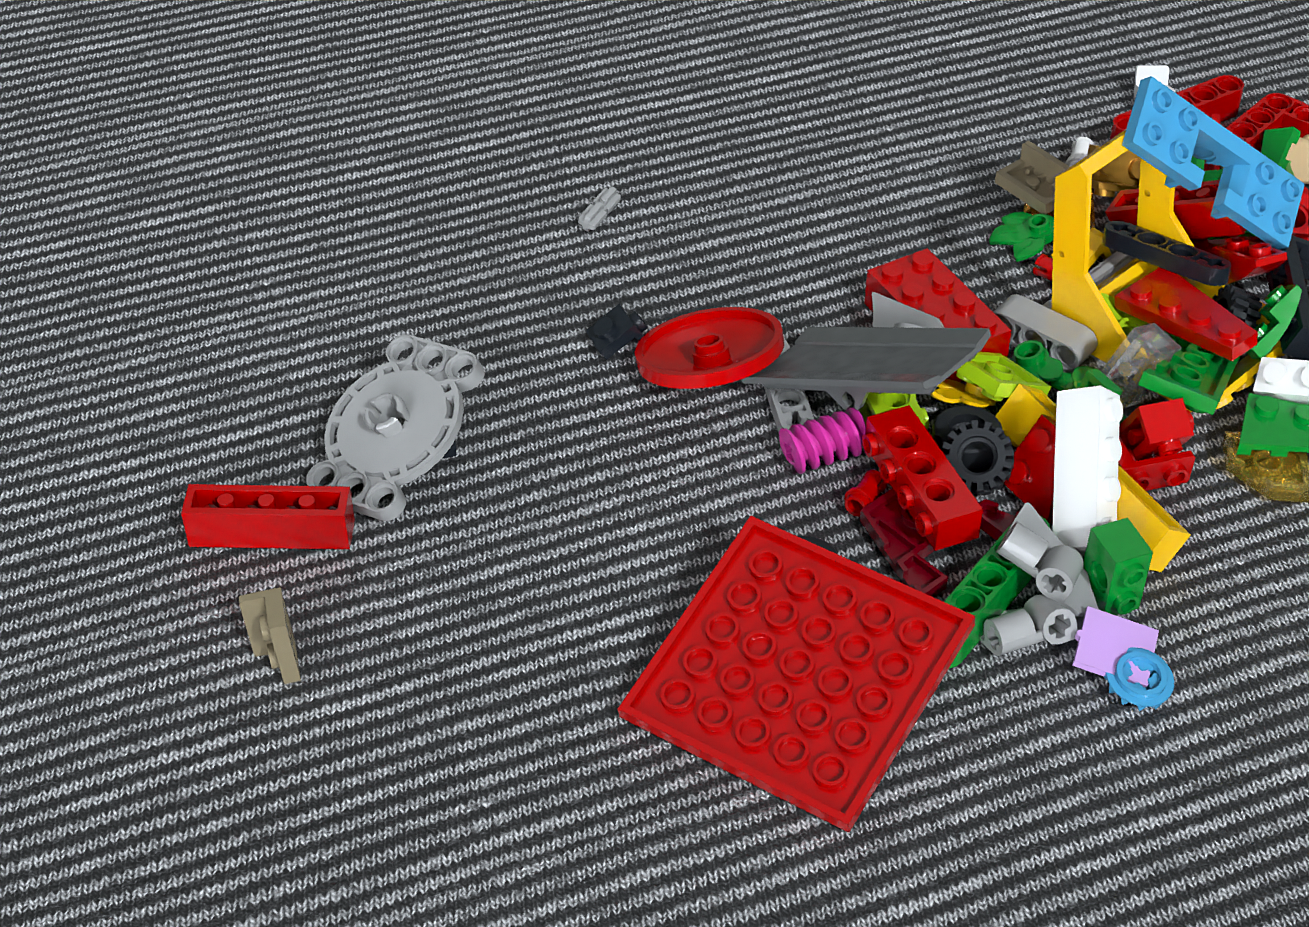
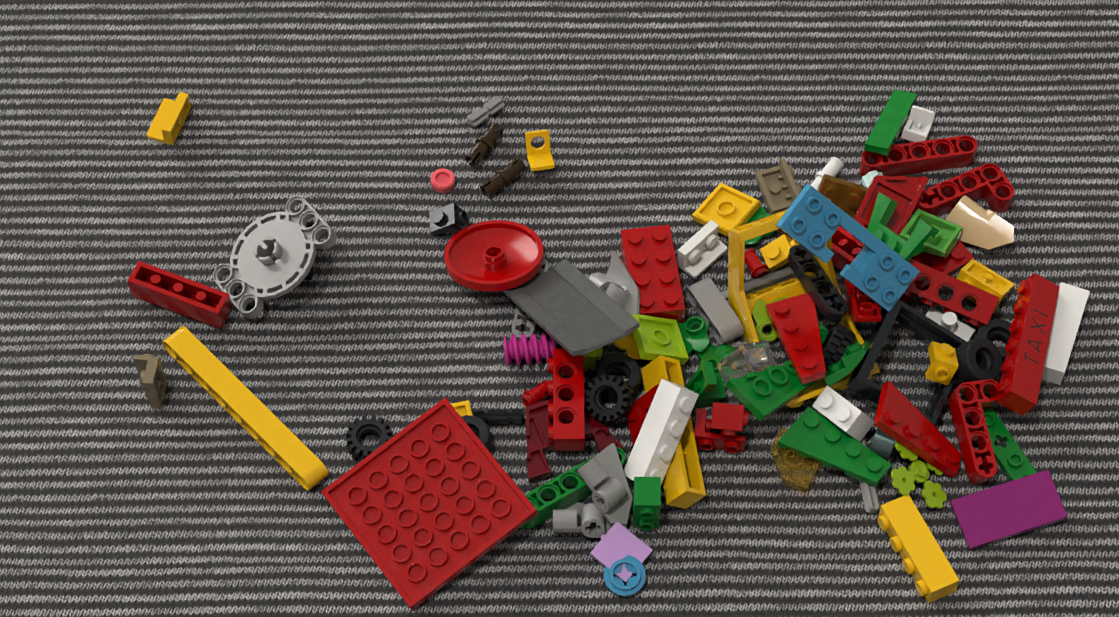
camera: 20 degrees right, 15 degrees up
(155, 325) = (169, 119): none -> yellow panel
(445, 636) = (246, 408): none -> yellow beam
(583, 295) = (442, 180): none -> coral tile
(618, 241) = (484, 144): none -> dark brown pin
(645, 603) = (364, 427): none -> black tyre
(665, 268) = (503, 177): none -> dark brown pin
(701, 235) = (540, 157): none -> yellow bracket
(836, 533) = (500, 416): none -> black axle
(981, 226) = (726, 208): none -> yellow tile
(981, 270) = (701, 250): none -> white bracket
(1119, 85) = (890, 122): none -> green tile

